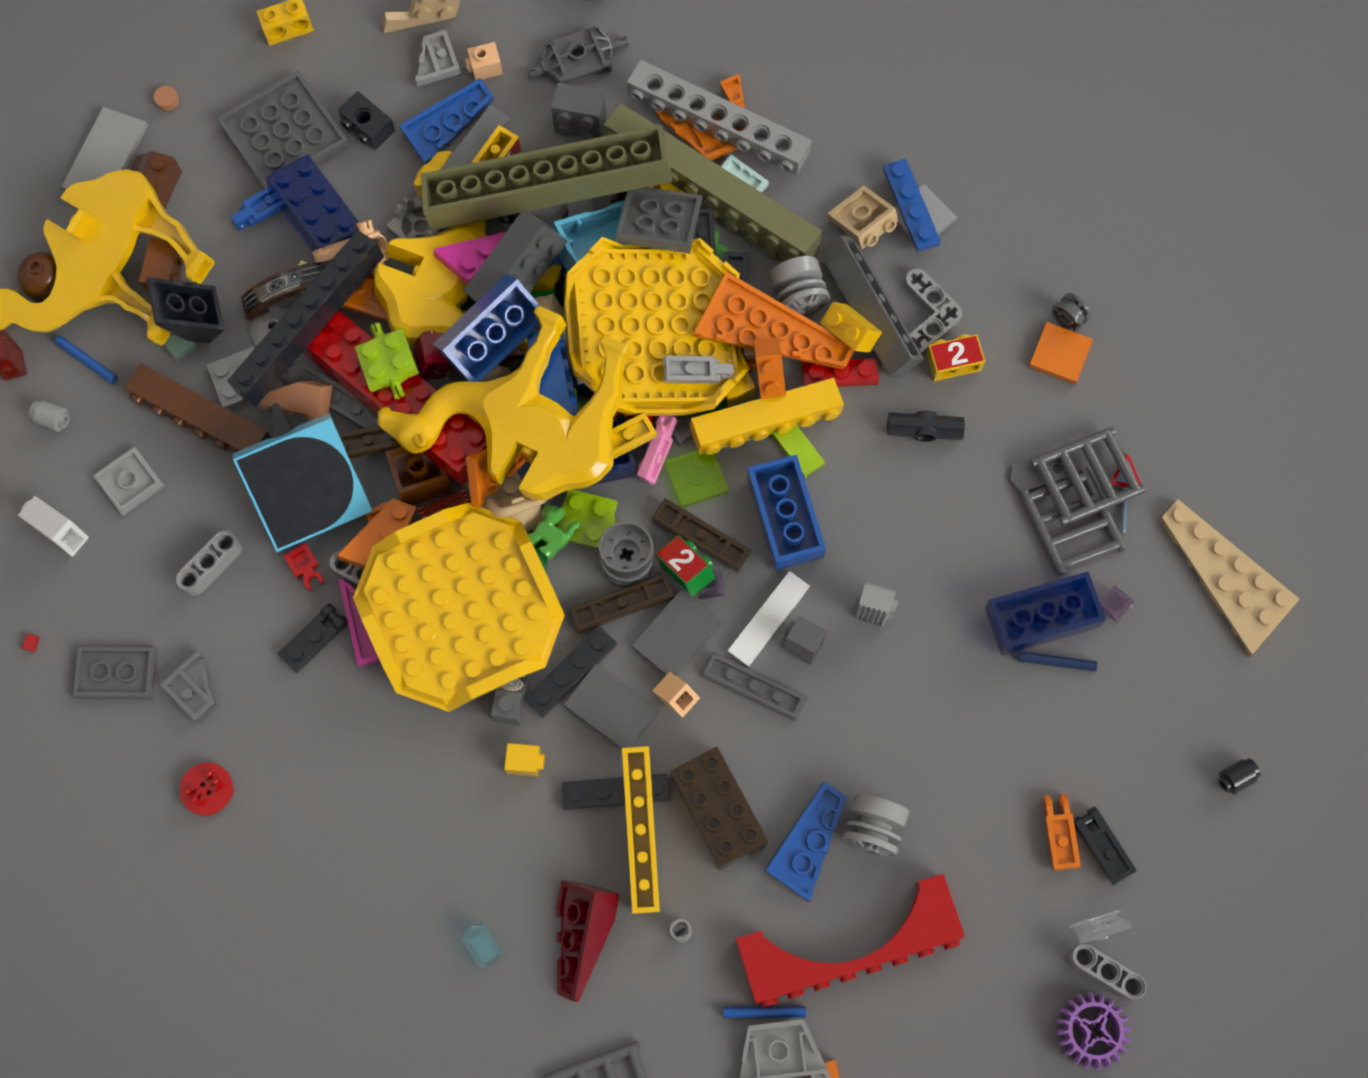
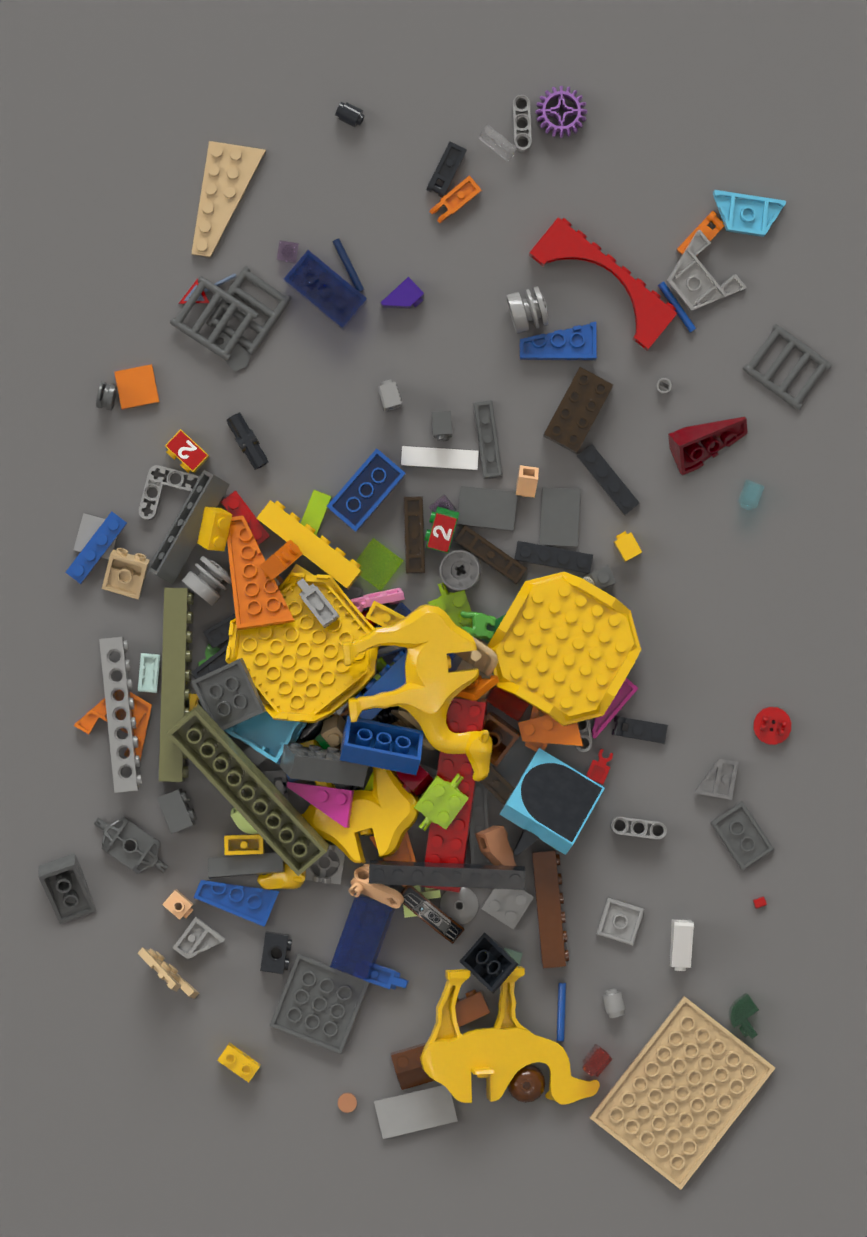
camera: 125 degrees left, 15 degrees up
(640, 830) = (623, 446): yellow brick -> none
(982, 699) = (404, 296): none -> dark purple slope

